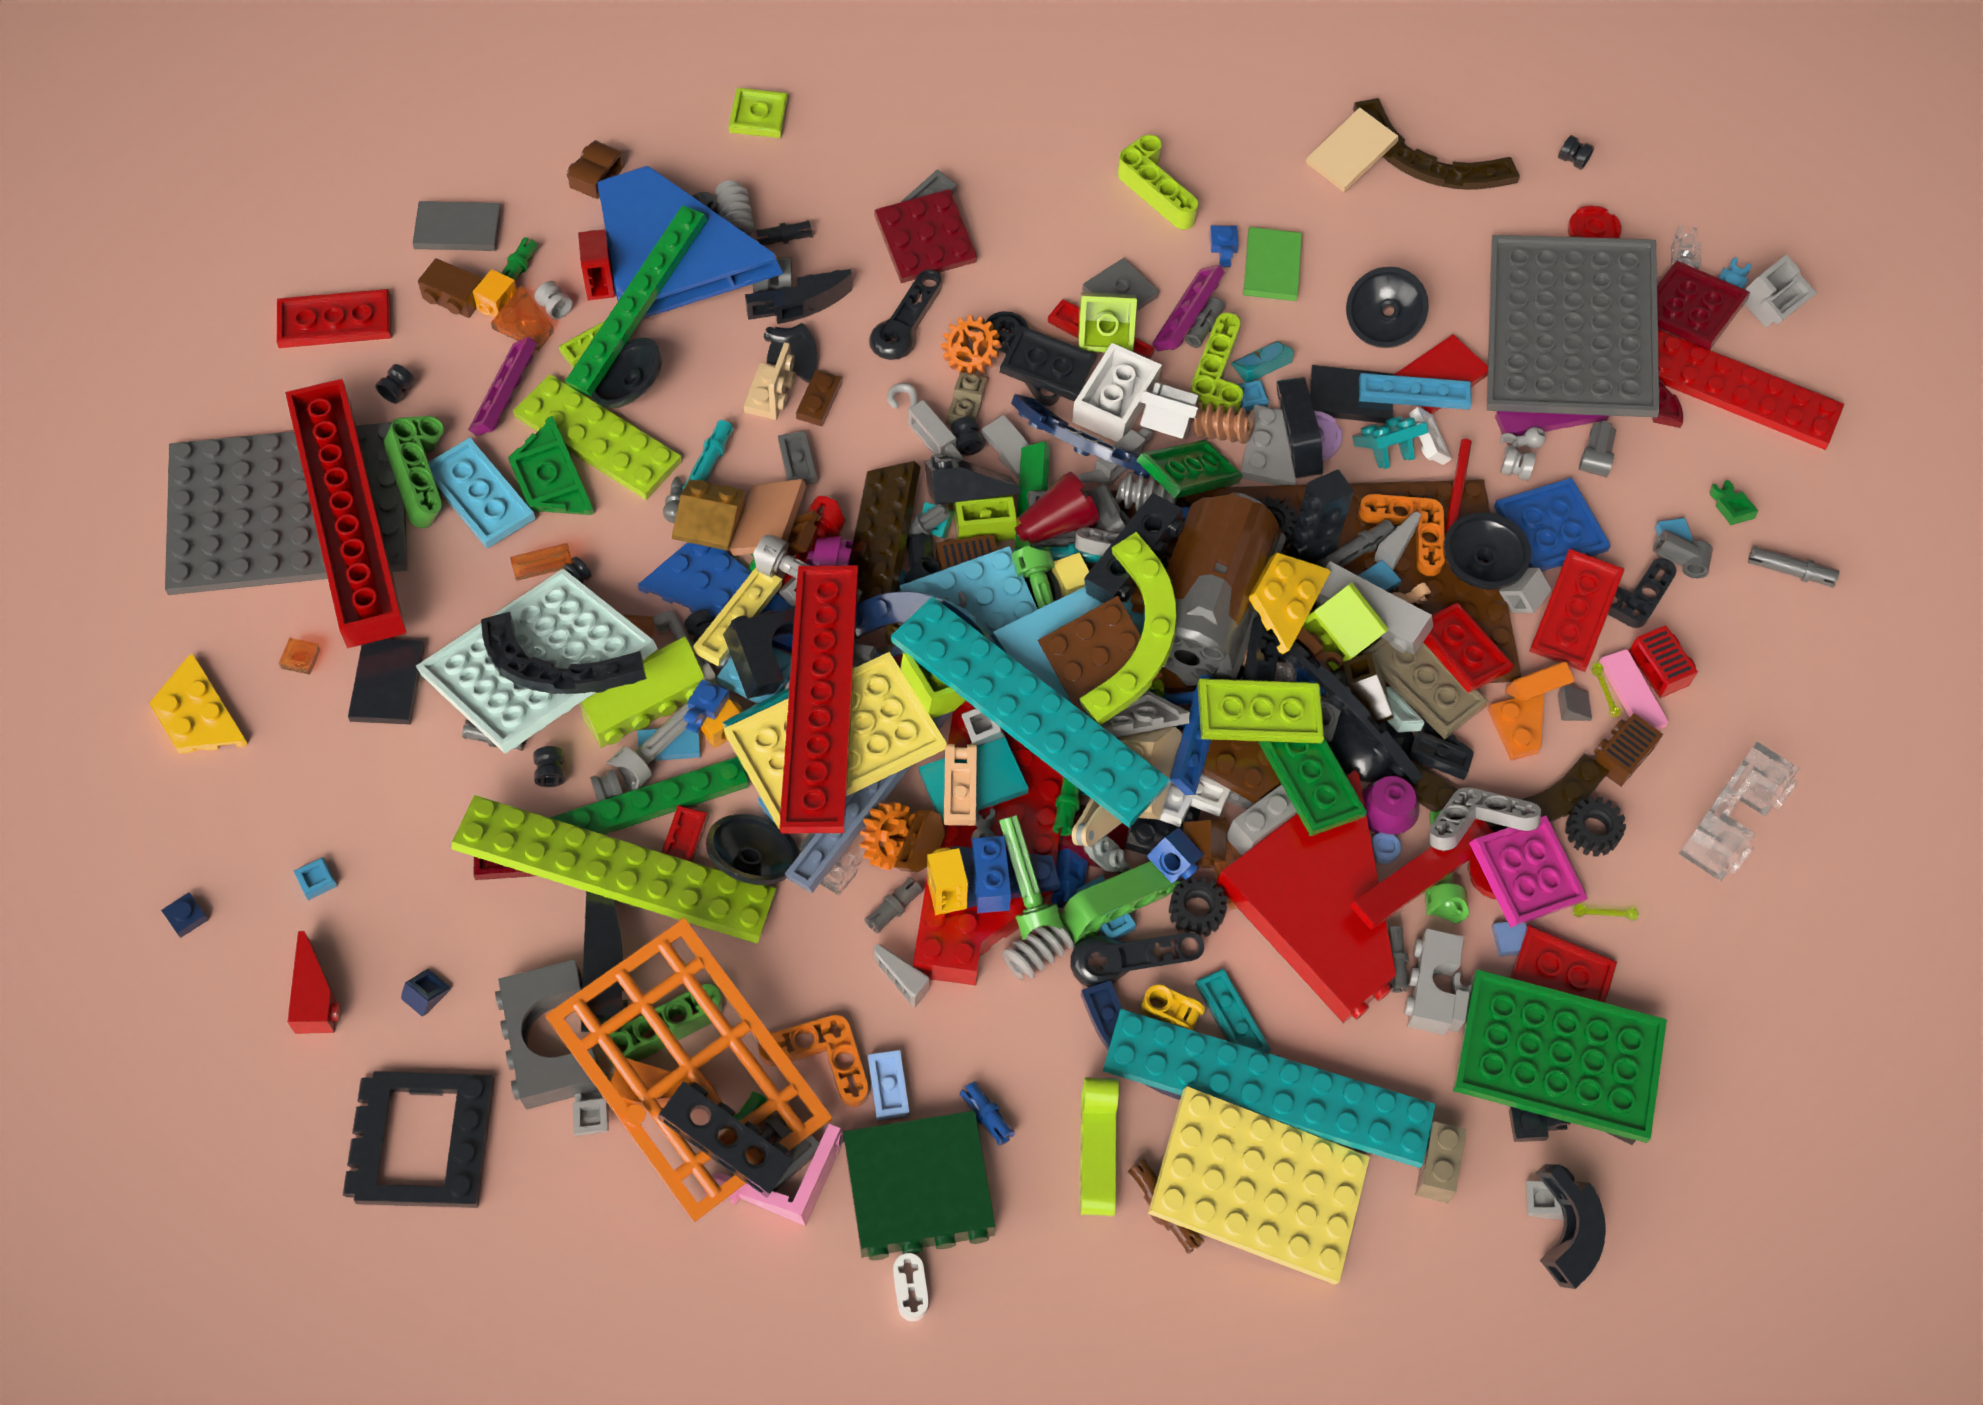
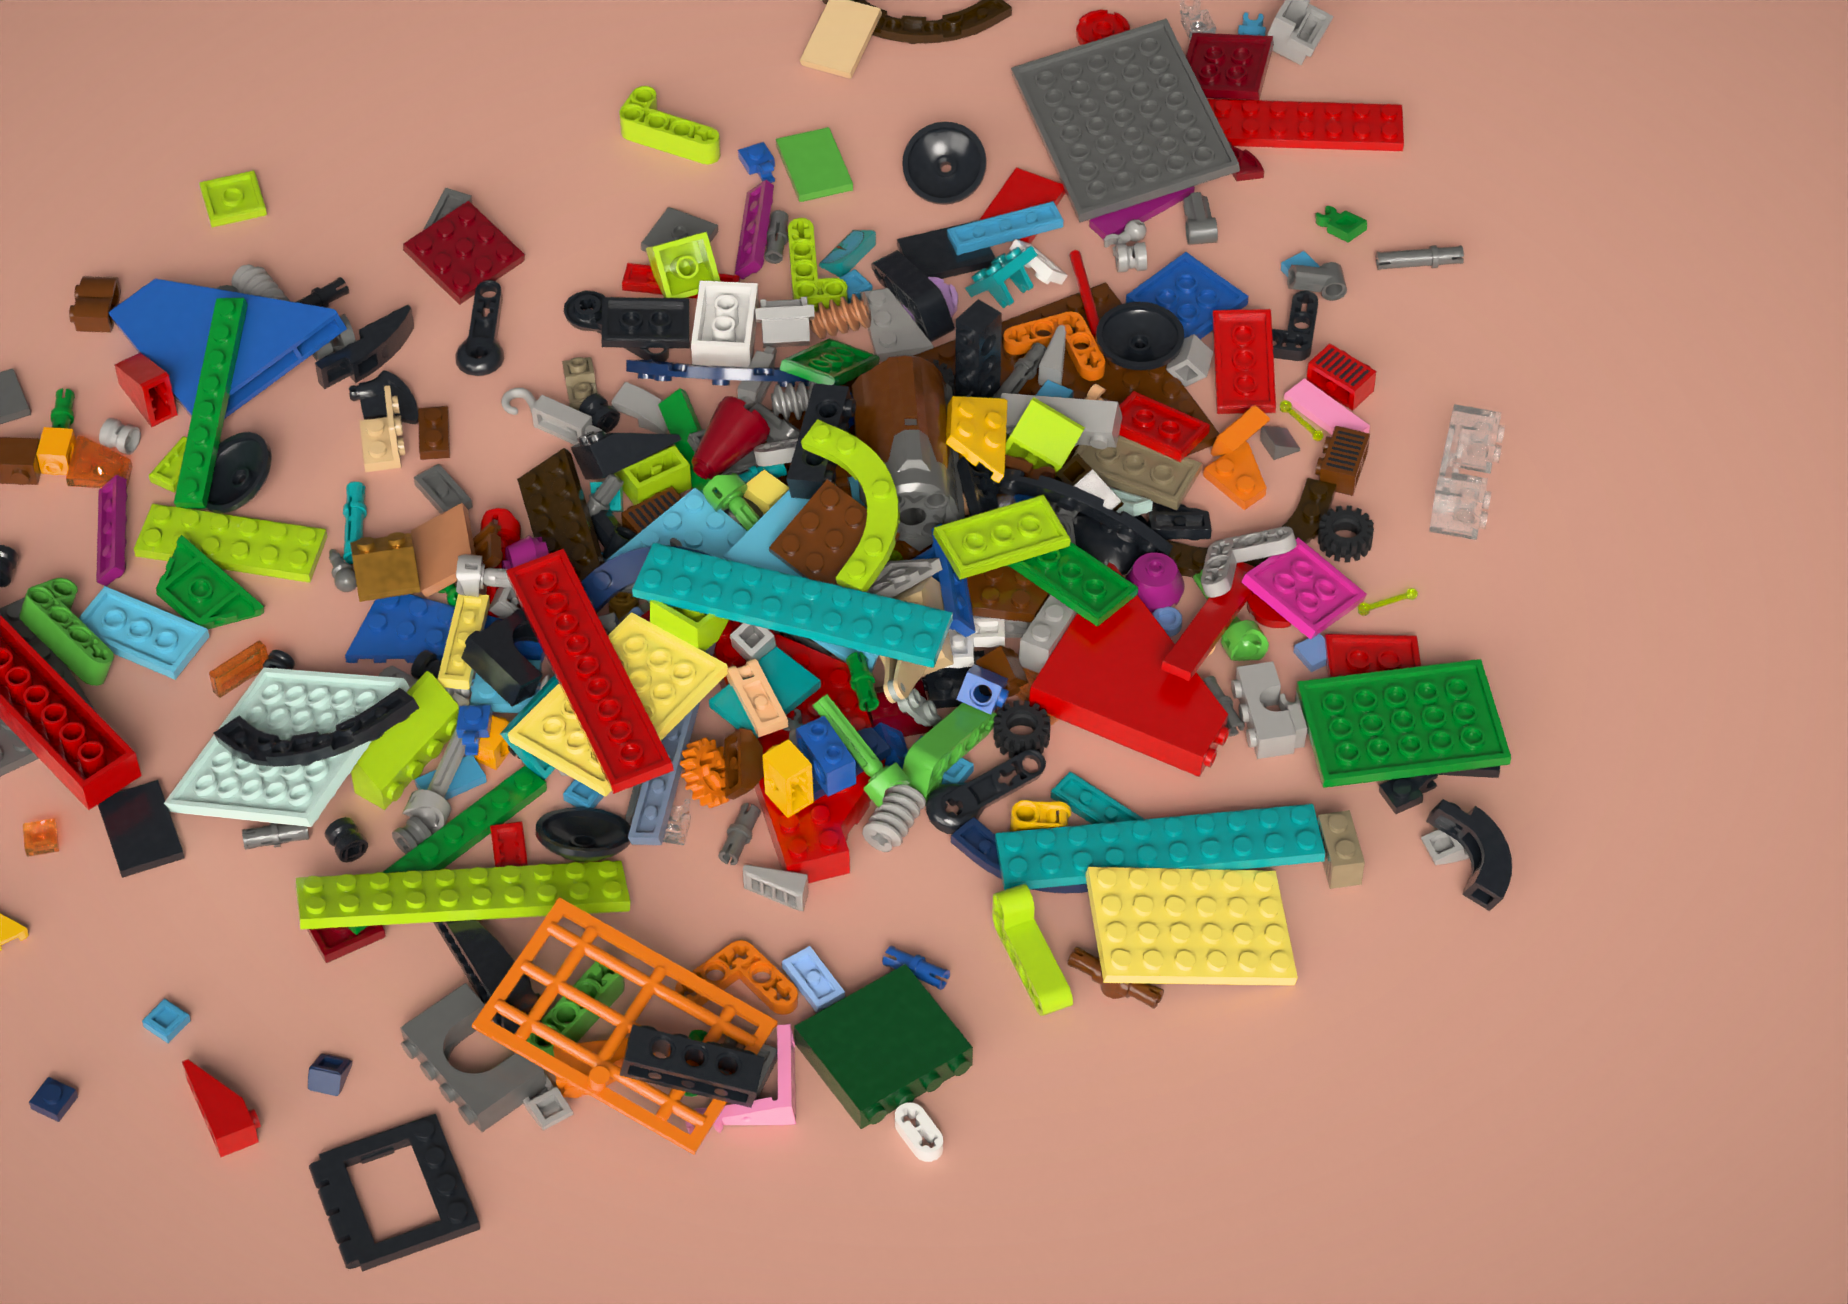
camera: 20 degrees left, 10 degrees down
(961, 350) = (566, 321): orange gear -> none

